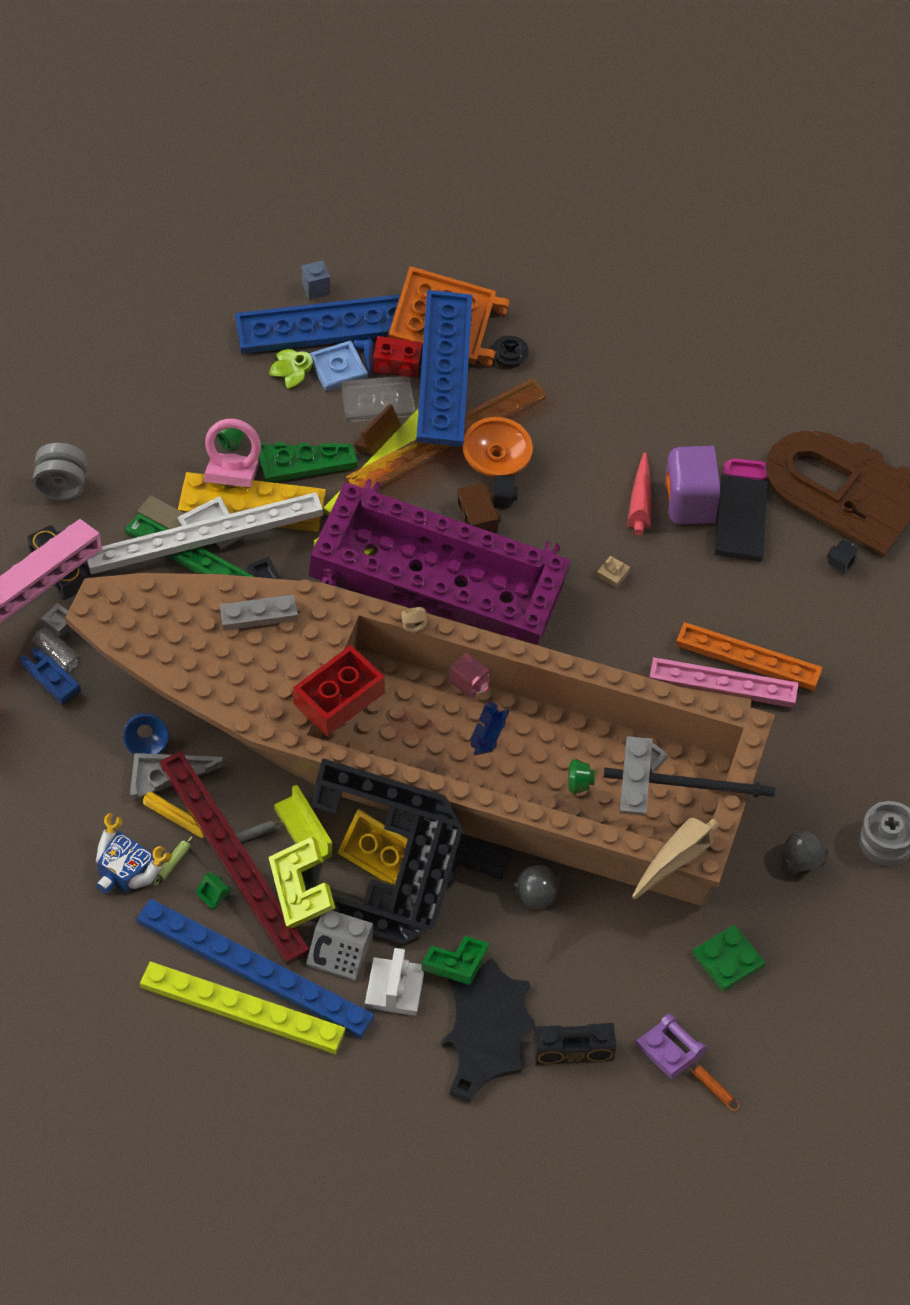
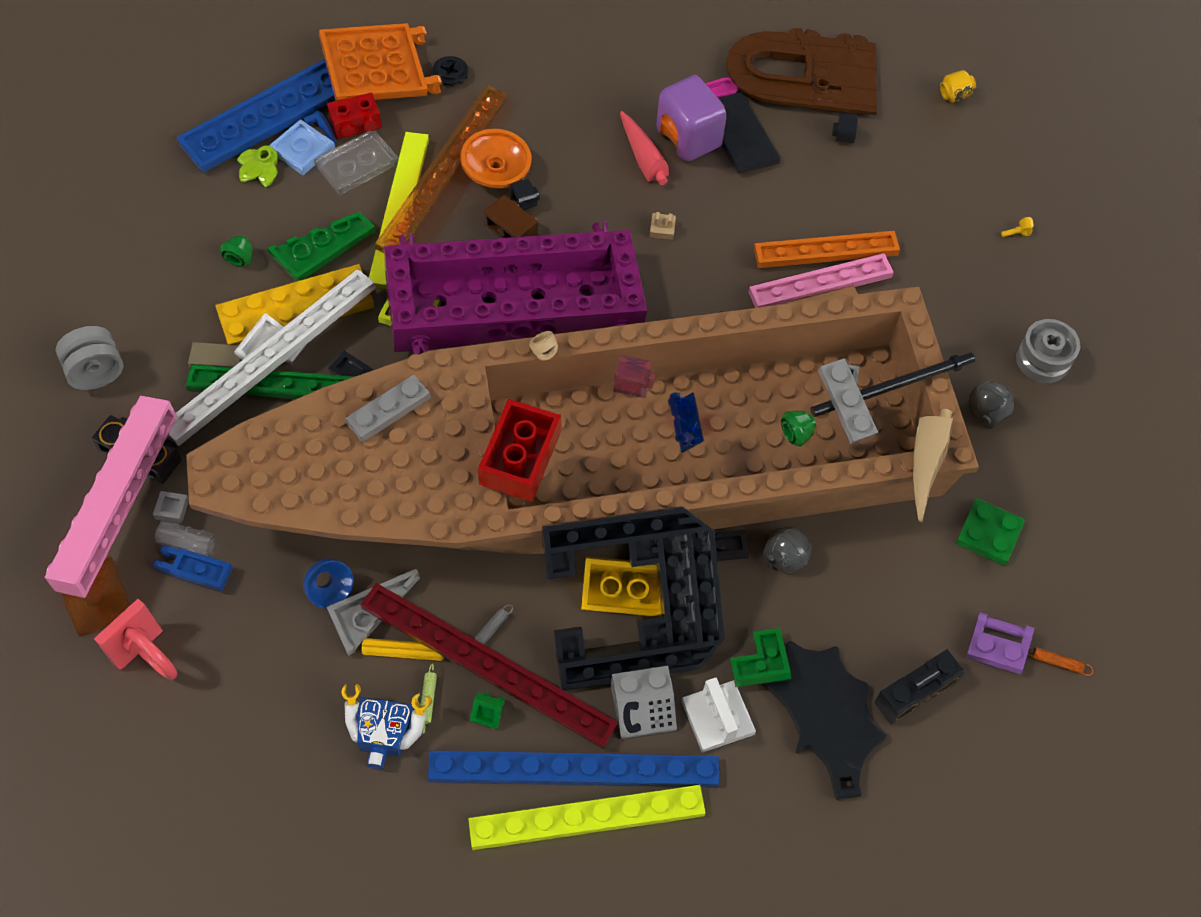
camera: 30 degrees left, 5 degrees up
(232, 468) = (260, 281): bright pink tile -> none
(295, 901) = (582, 683): neon yellow plate -> none
(302, 821) = (536, 598): neon yellow panel -> none
(315, 280) = (235, 77): sand blue brick -> none
(378, 432) = (377, 190): reddish brown panel -> none
(444, 368) = (407, 107): blue plate -> none

